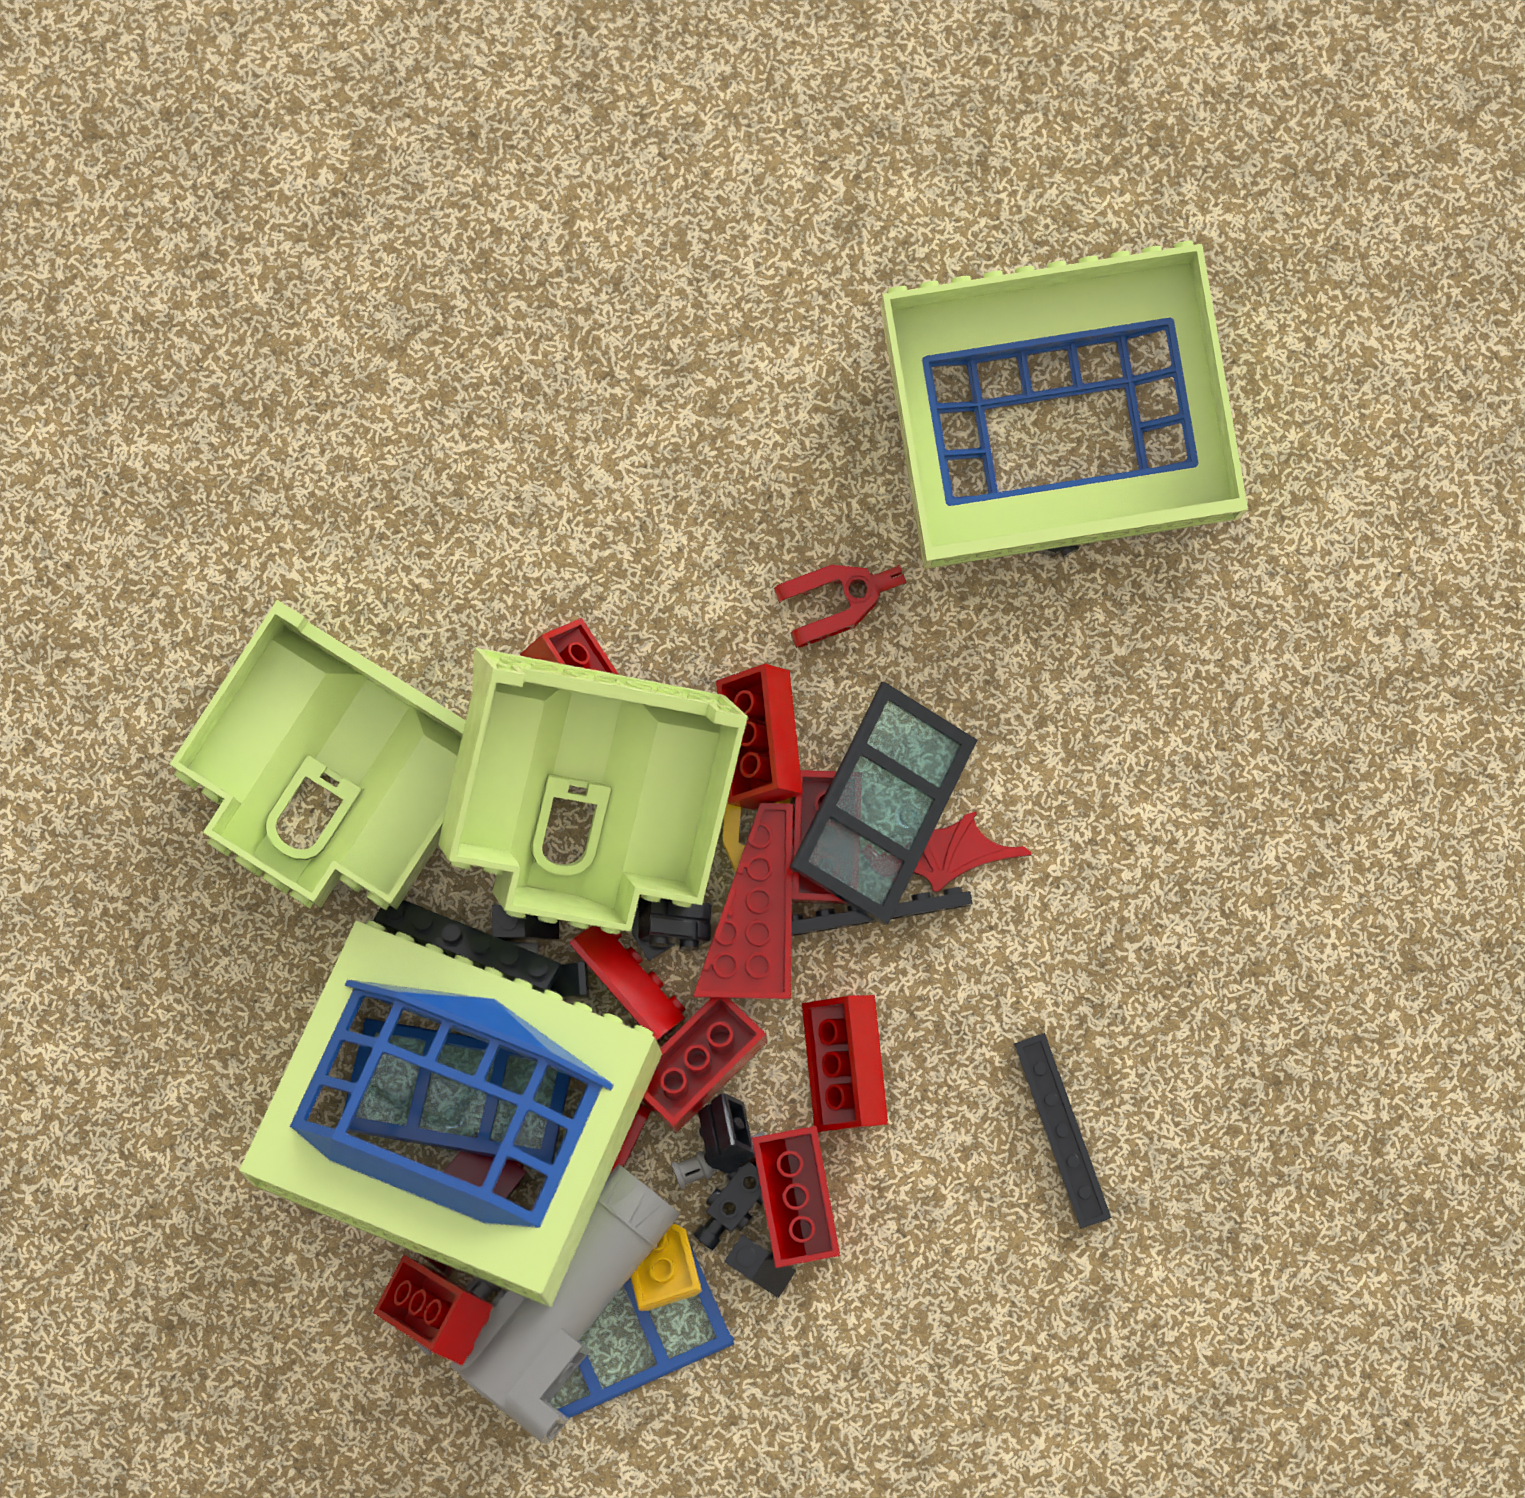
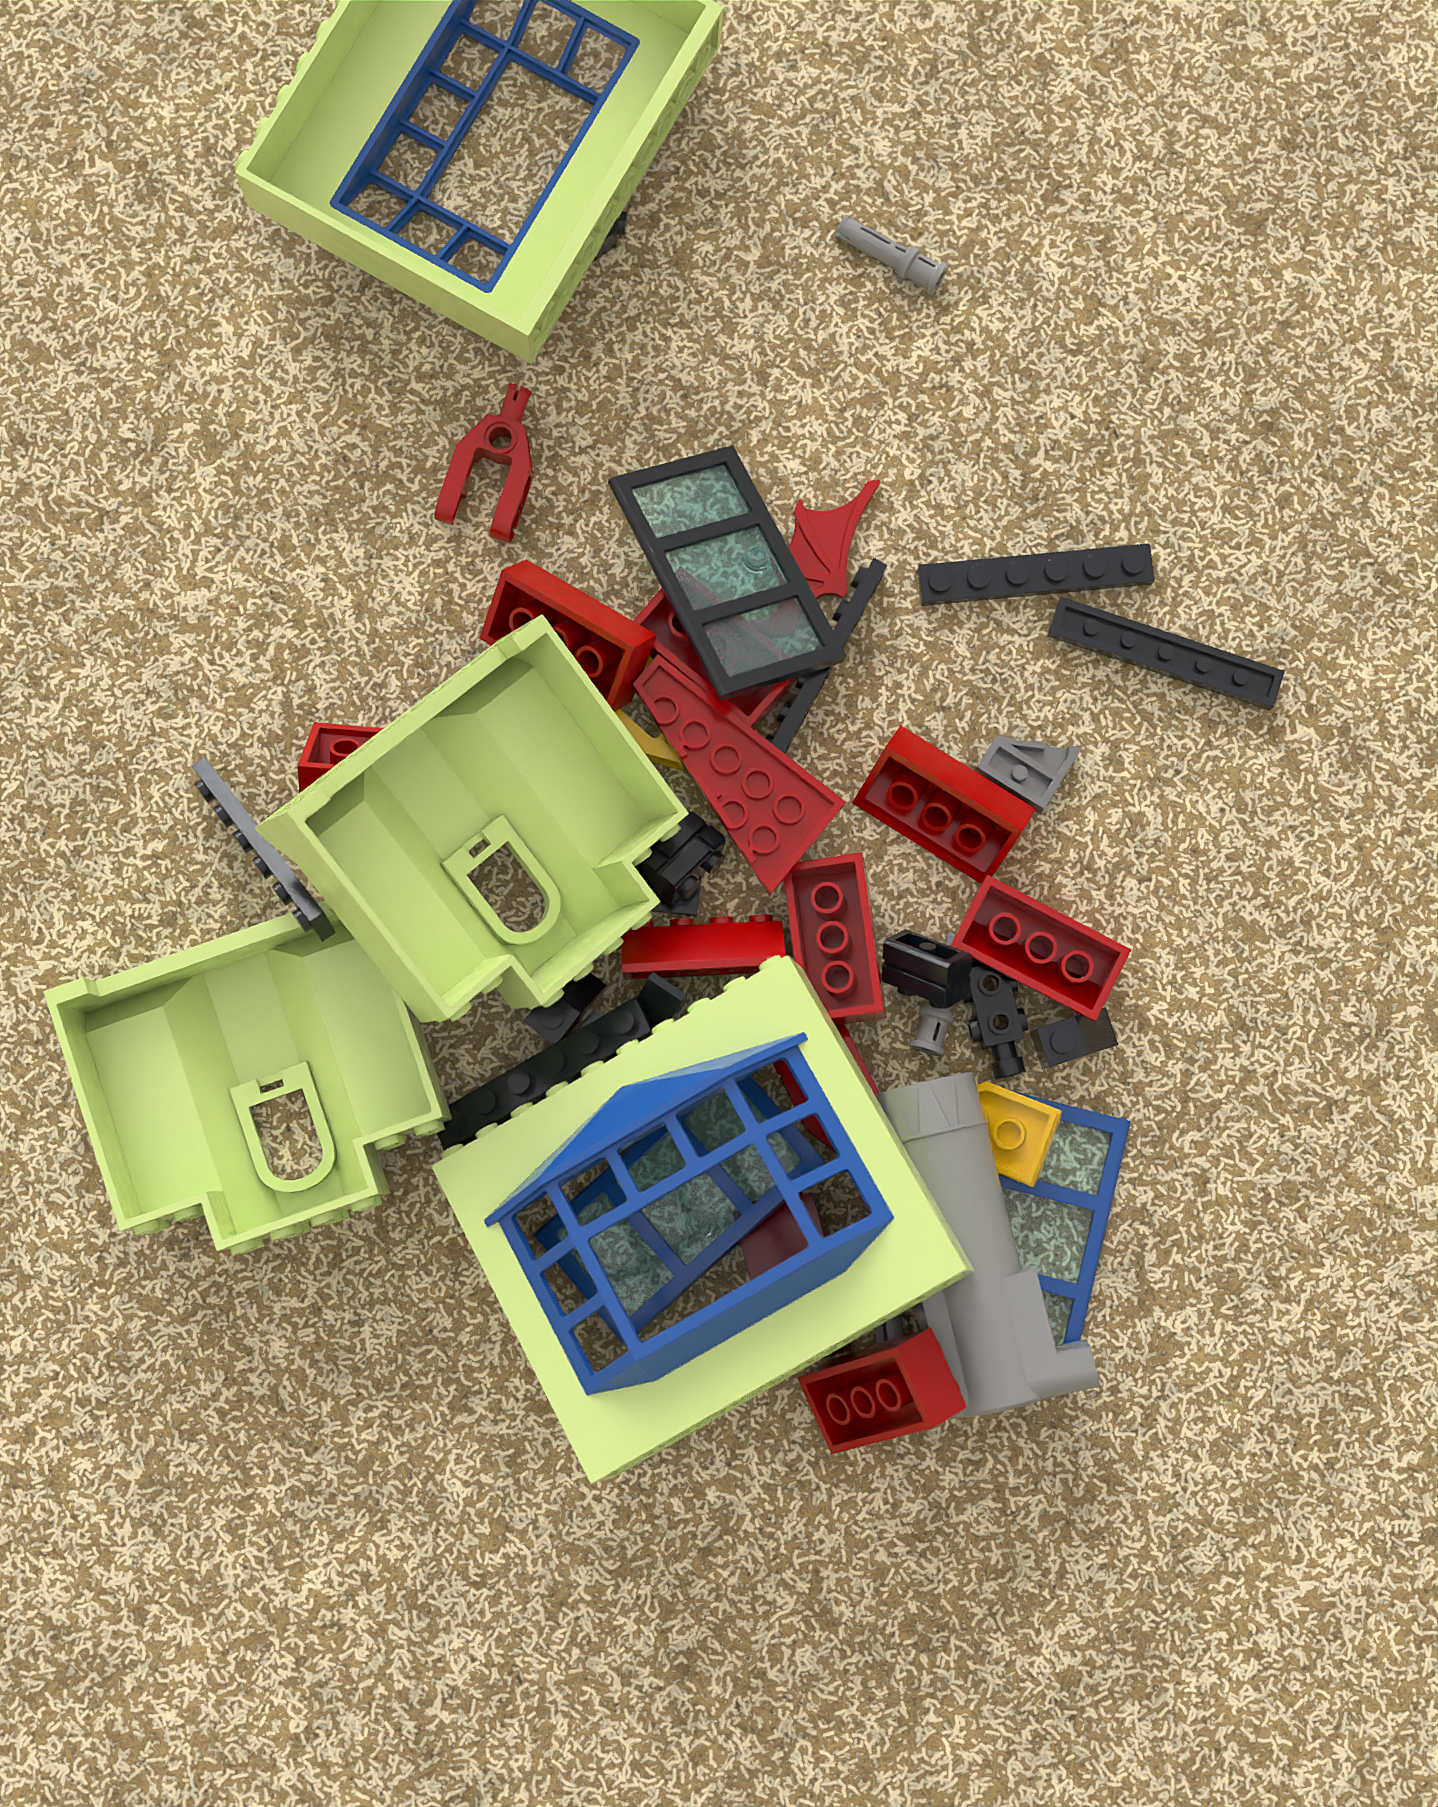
camera: 55 degrees left, 0 degrees up
(459, 692) = (268, 860): none -> plate
(912, 1100) = (1027, 768): none -> flat silver wing
(1049, 1005) = (1035, 574): none -> black plate
(1193, 755) = (906, 261): none -> light grey pin

